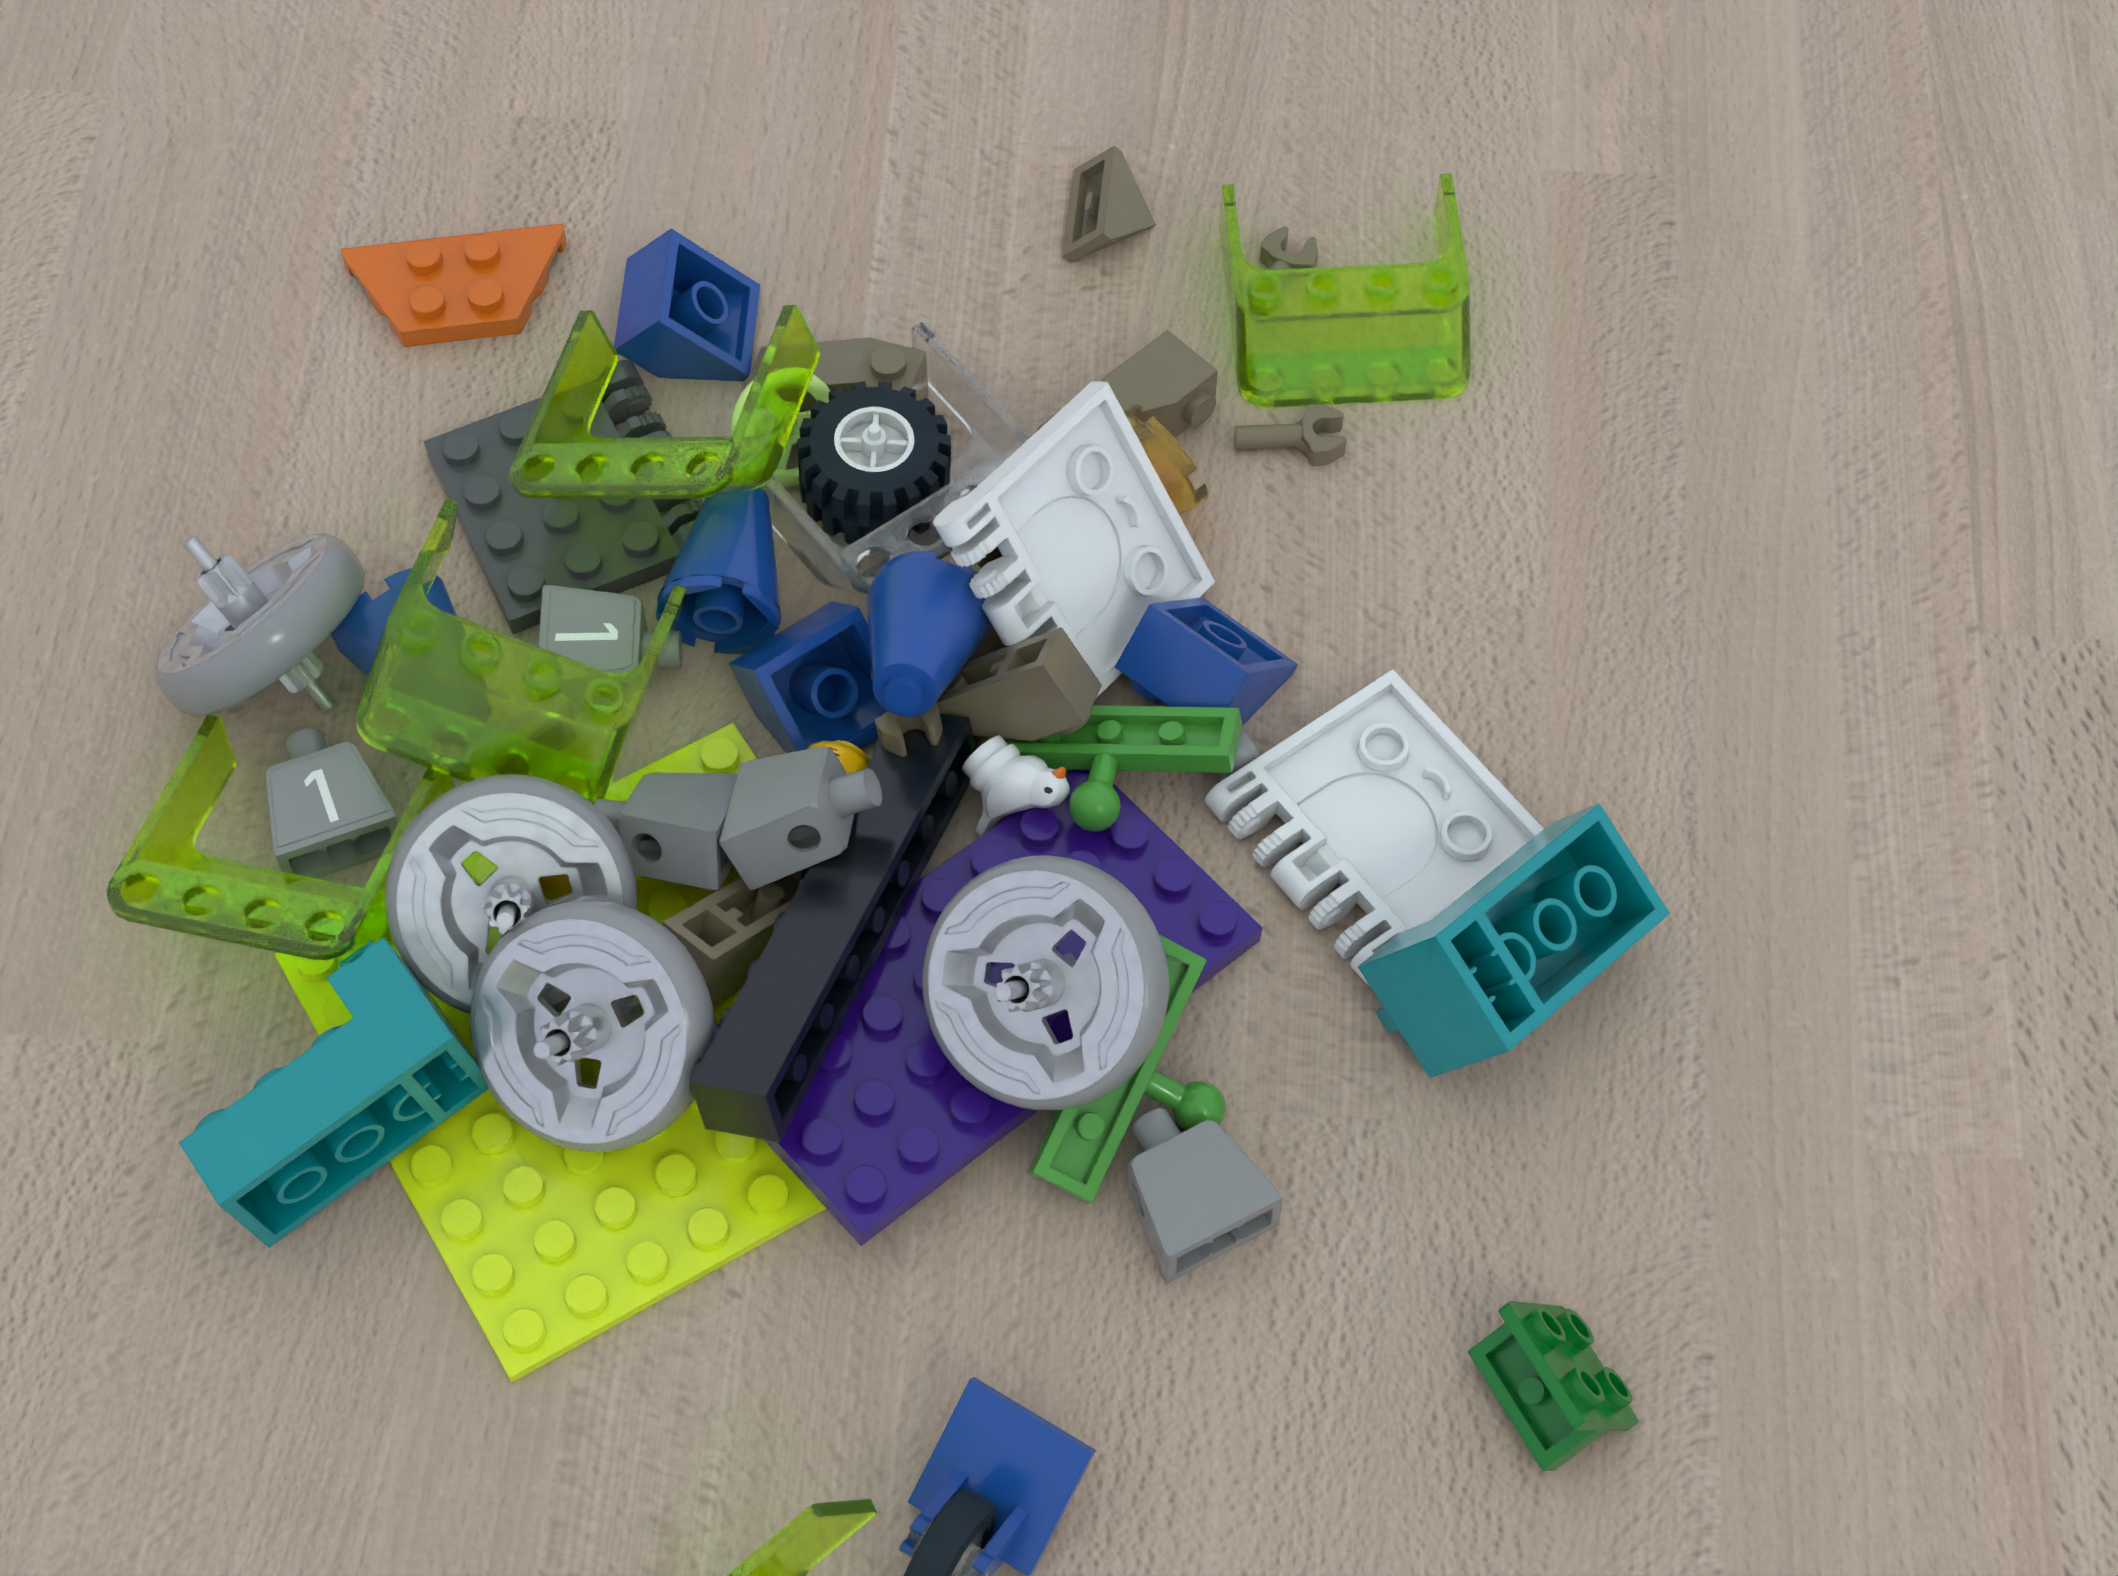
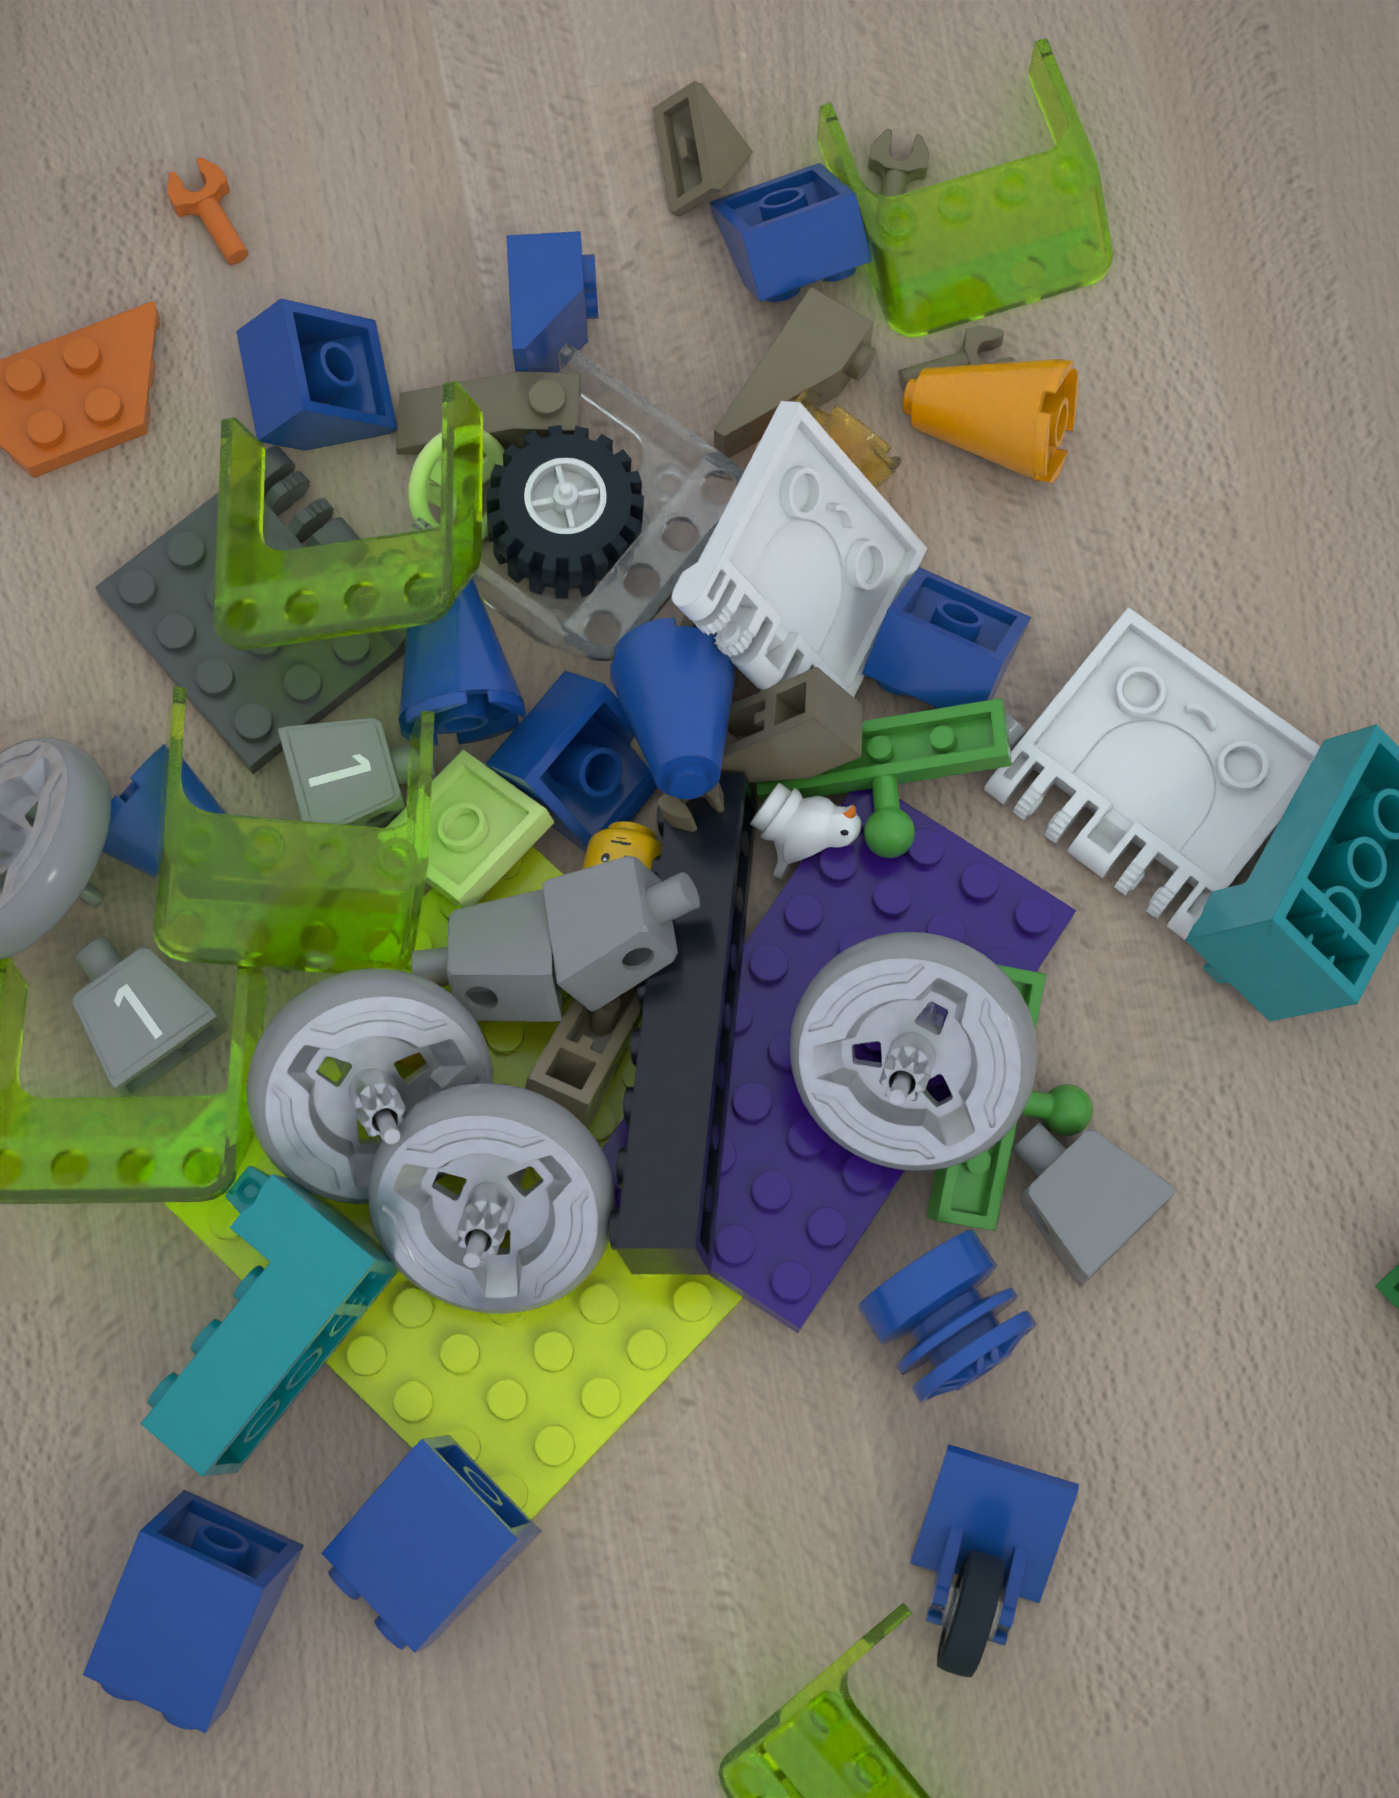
camera: 15 degrees left, 15 degrees up
(170, 1353) = (191, 1610): none -> blue slope
(425, 1342) = (428, 1542): none -> blue slope
(641, 161) = (207, 206): none -> orange bar
(697, 716) = (476, 829): none -> yellowish green plate
(918, 281) = (549, 297): none -> blue slope
(1012, 1257) = (947, 1316): none -> blue wheel
(1169, 291) = (793, 232): none -> blue slope
(1320, 474) = (1000, 411): none -> light orange cone

